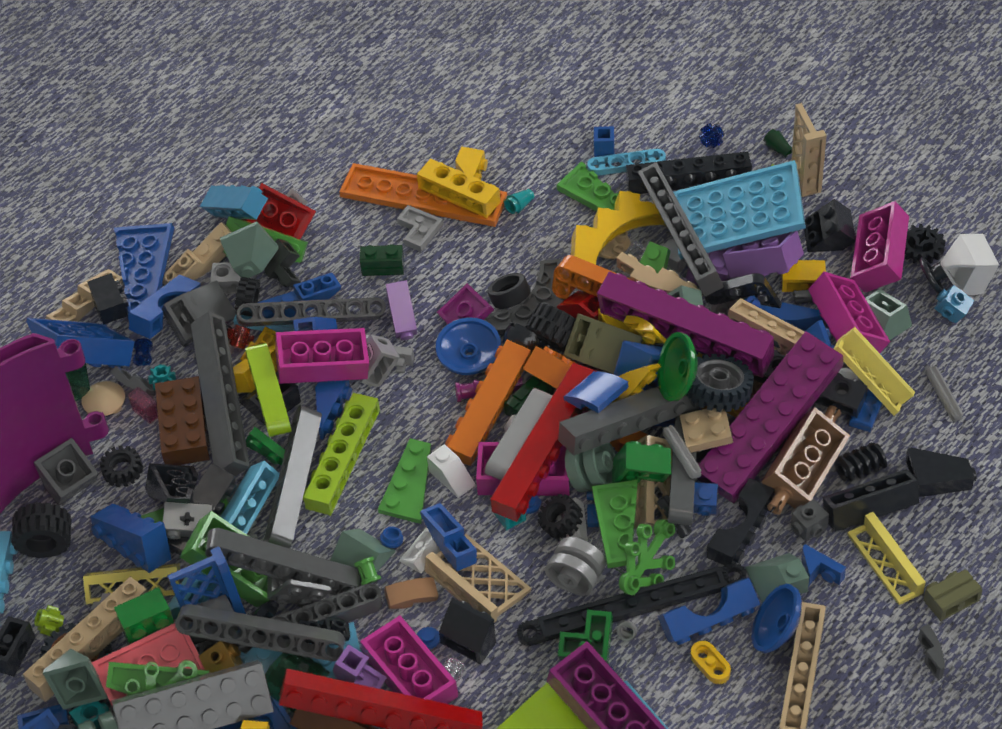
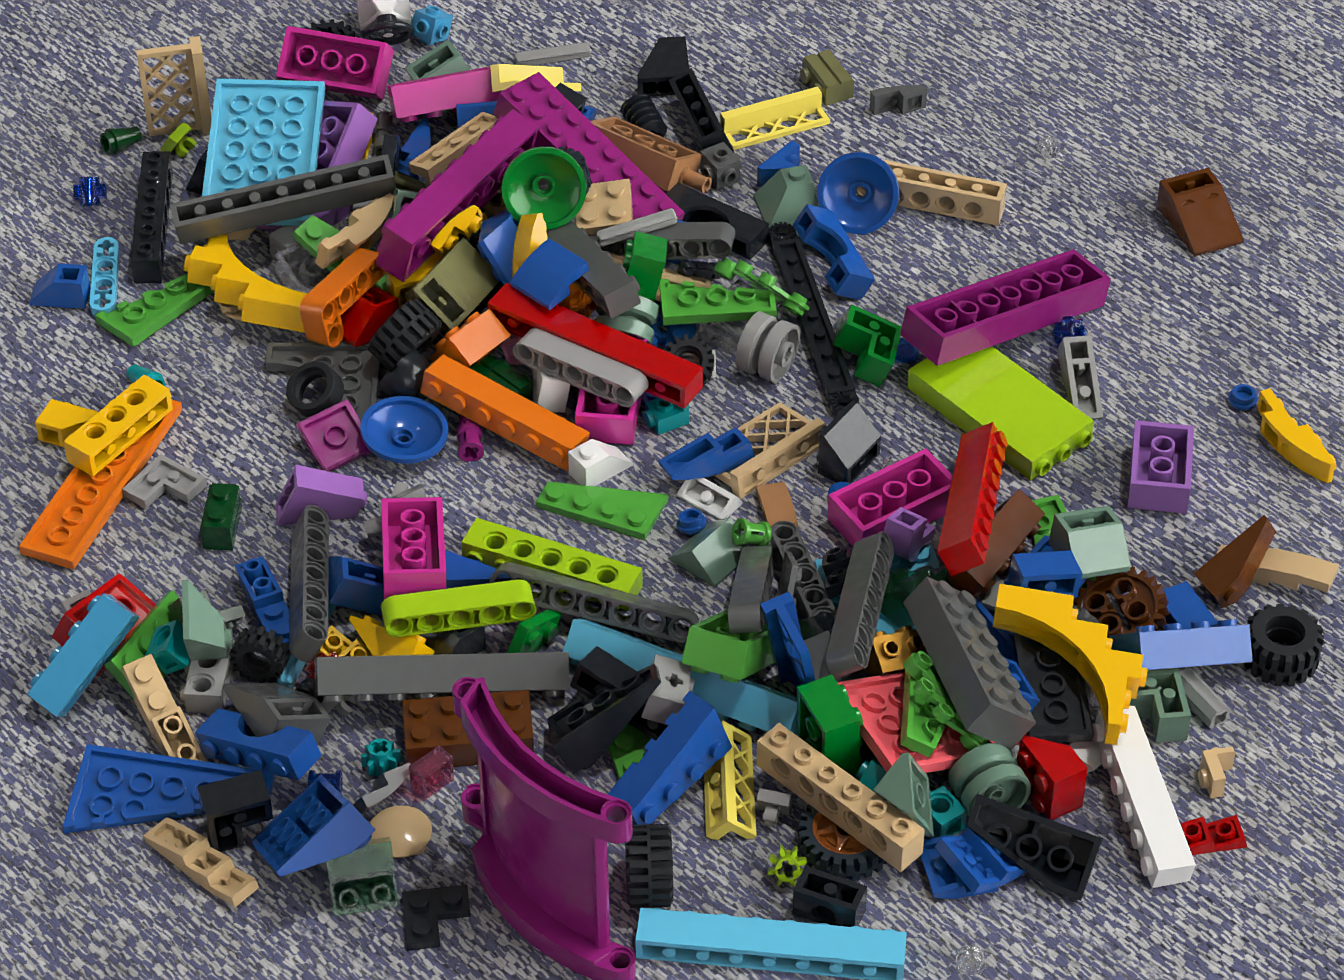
camera: 90 degrees left, 5 degrees down
(711, 663) = (892, 264): yellow plate -> none

